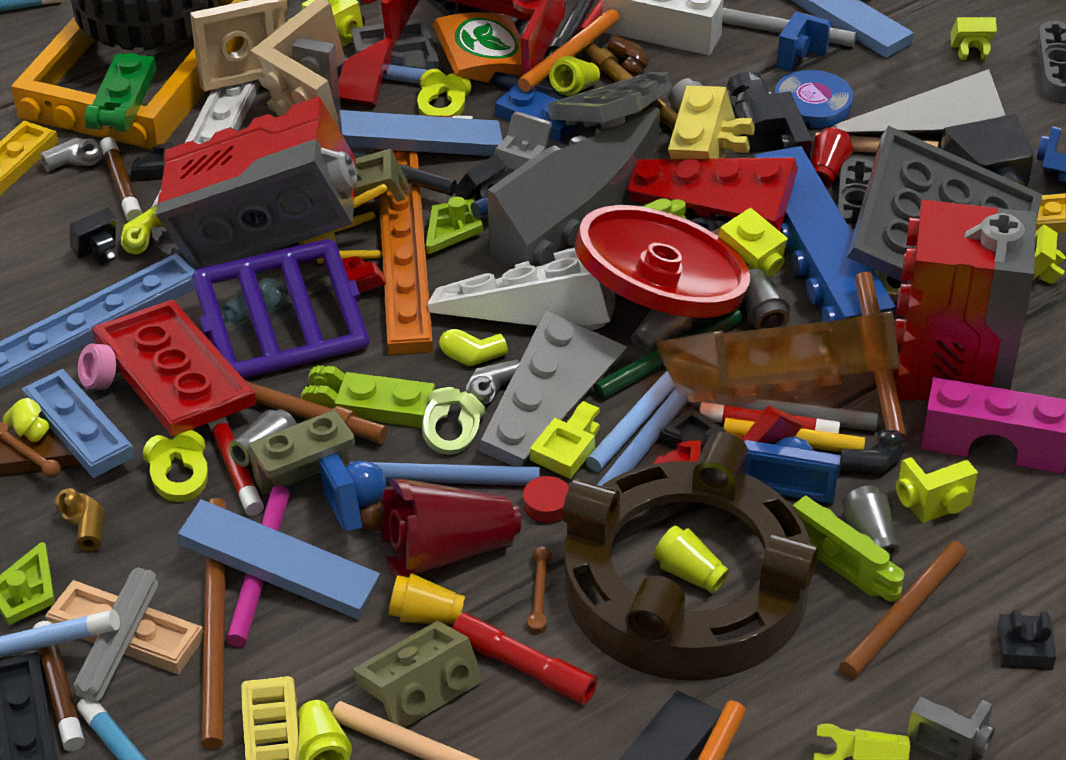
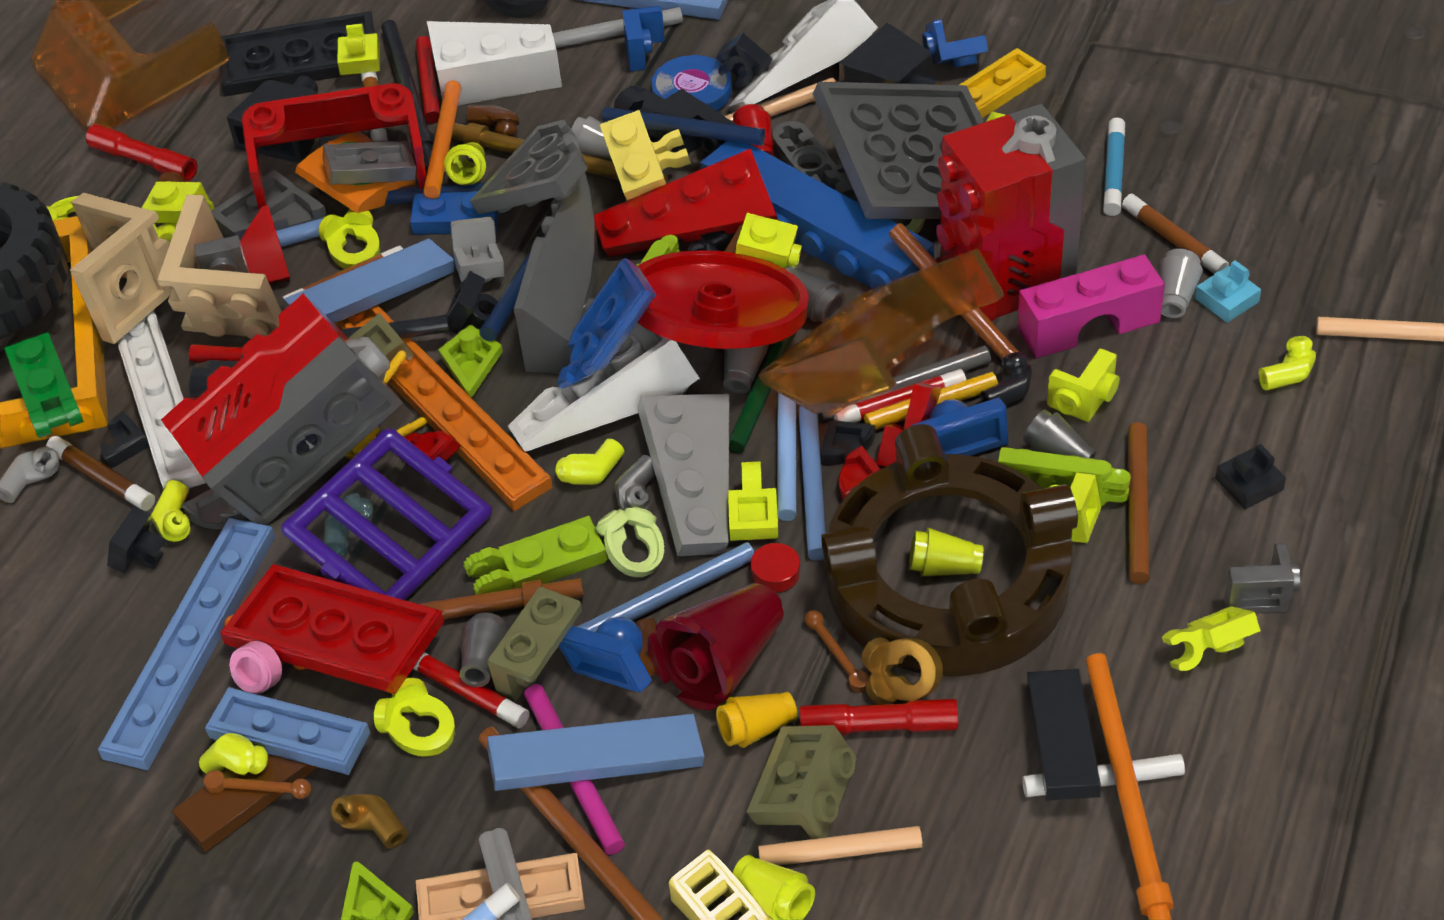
camera: 30 degrees left, 5 degrees up
(485, 38) = (368, 162): none -> flat silver plate
(551, 634) = (886, 686): none -> pearl gold piece
(552, 235) = (607, 323): none -> blue tile
(772, 125) = (693, 127): none -> dark blue bar
(840, 581) = (1088, 505): none -> neon yellow tile
(867, 91) = (743, 59): none -> black tile

